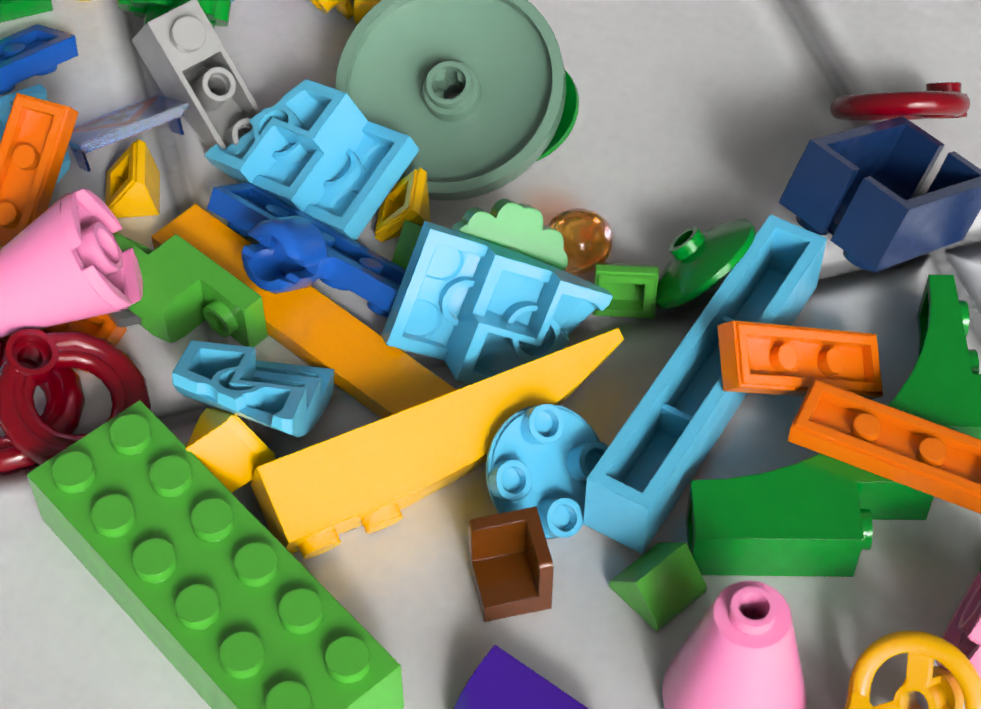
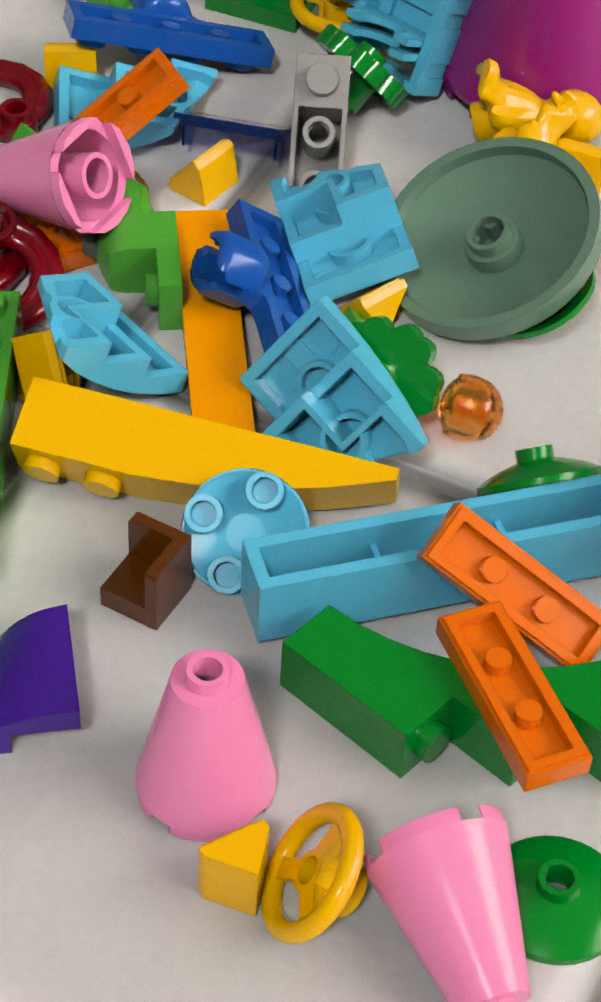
camera: 40 degrees right, 5 degrees down
(631, 286) = (464, 461): bright green slope -> none
(660, 583) = (258, 663): bright green slope -> none

